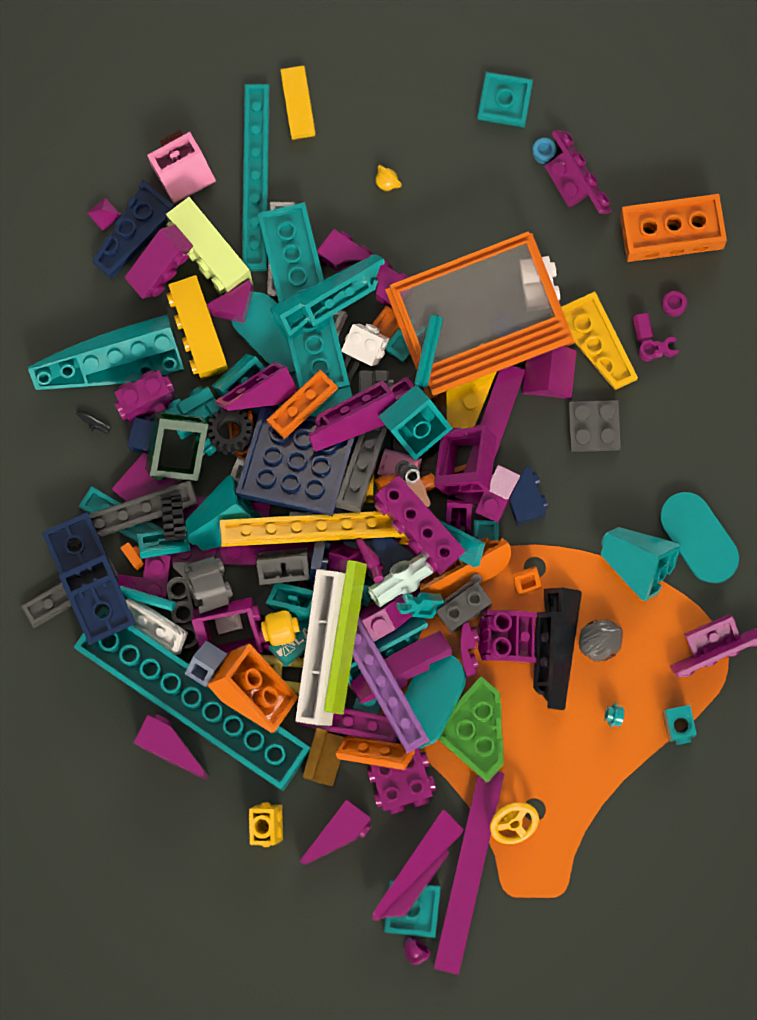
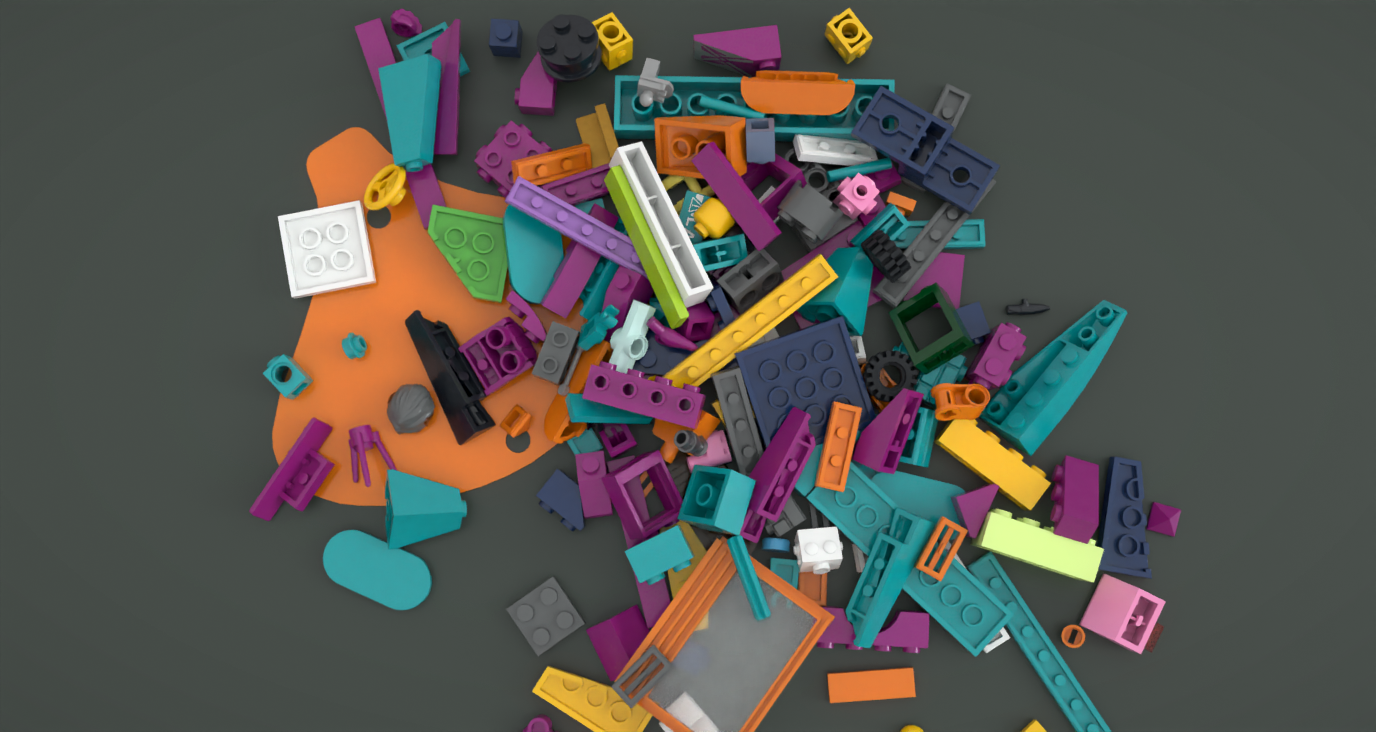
camera: 145 degrees right, 5 degrees up
(76, 700) = (848, 36): none -> yellow head
(153, 681) = (797, 92): none -> orange brick
(169, 580) = (856, 196): none -> bright pink brick
(197, 381) = (955, 402): none -> orange piece
(211, 703) = (729, 108): none -> teal piece
(222, 171) = (1079, 639): none -> orange hinge
(254, 627) = (736, 196): none -> magenta tile
(262, 759) = (650, 86): none -> light grey piece
(281, 297) = (930, 544): none -> orange tile
(302, 830) = (569, 48): none -> black wheel
(345, 883) = (505, 38): none -> dark blue brick
(390, 232) = (871, 684): none -> orange tile
(393, 369) = (775, 545): none -> dark azure tile
(455, 868) = (411, 109): none -> teal slope
(481, 408) = (659, 555): none -> teal brick
(570, 327) = (660, 659): none -> dark grey tile
(590, 805) = (326, 249): none -> white plate
(651, 639) = (360, 441): none -> magenta plant

